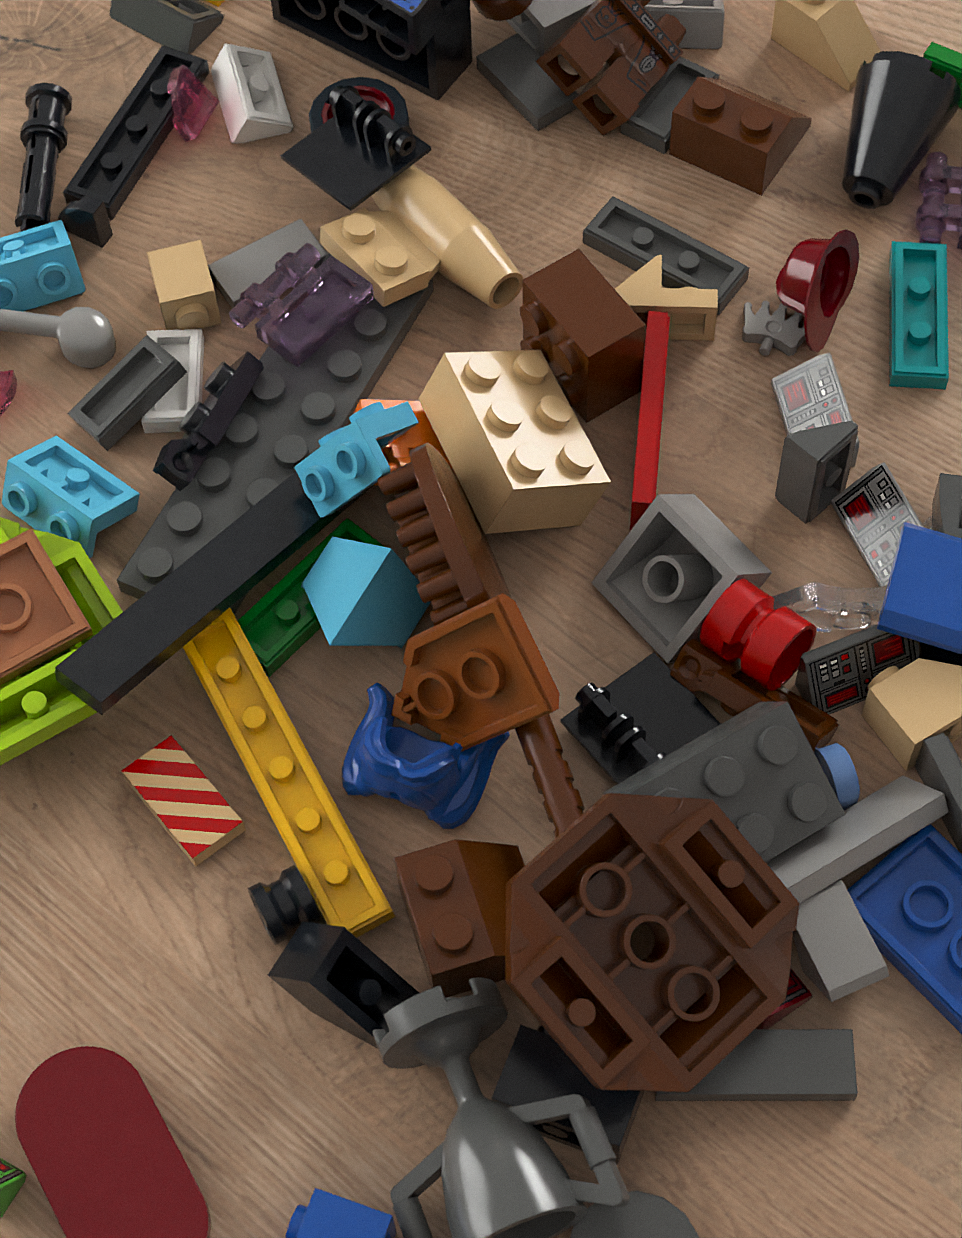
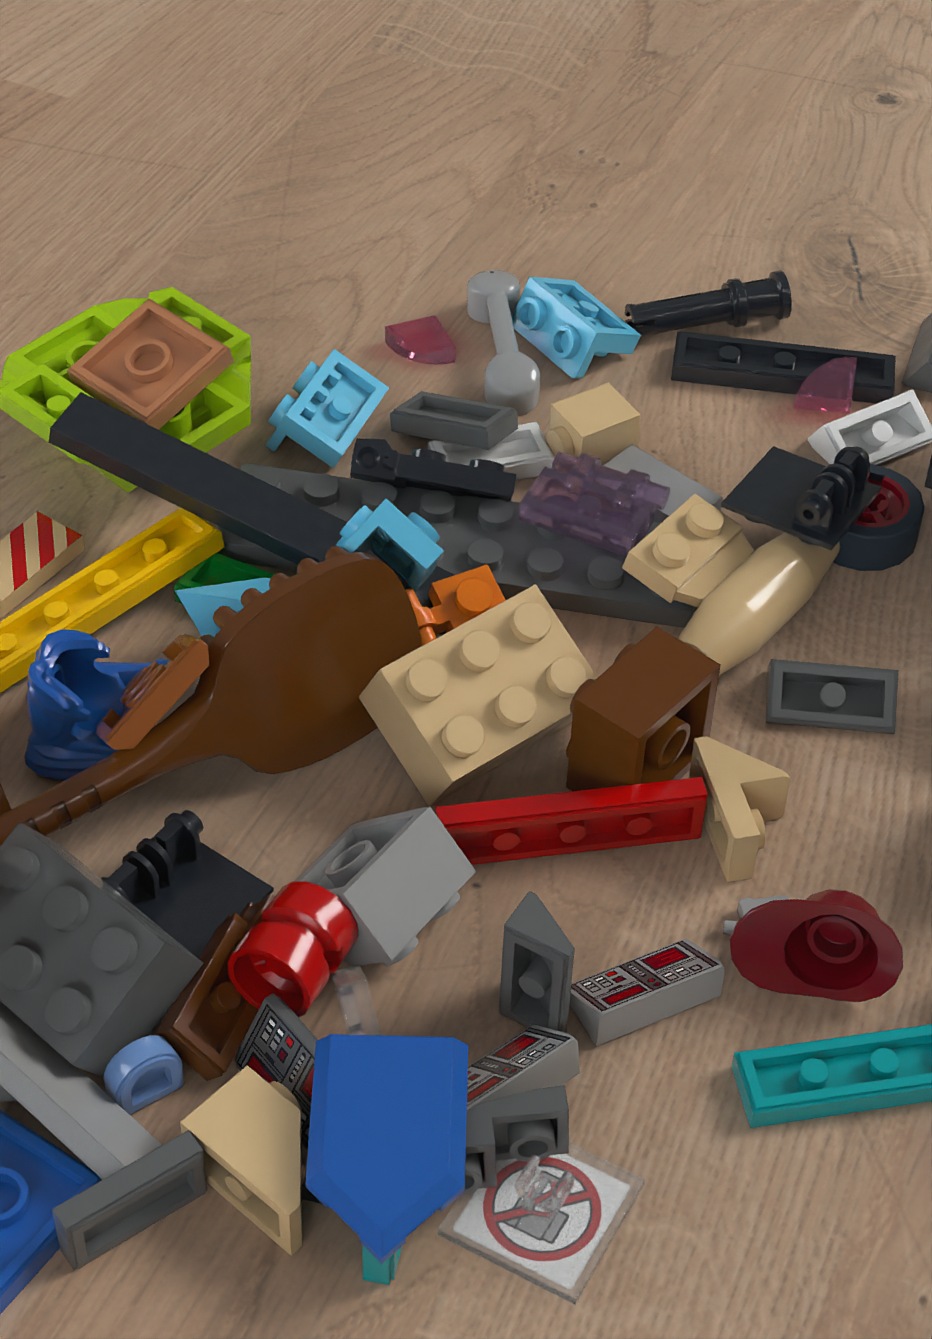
camera: 70 degrees right, 15 degrees down
(87, 220) = (649, 355): black tile -> none
(548, 214) = (831, 696): none -> dark grey slope
(637, 238) = (822, 811): dark grey tile -> none

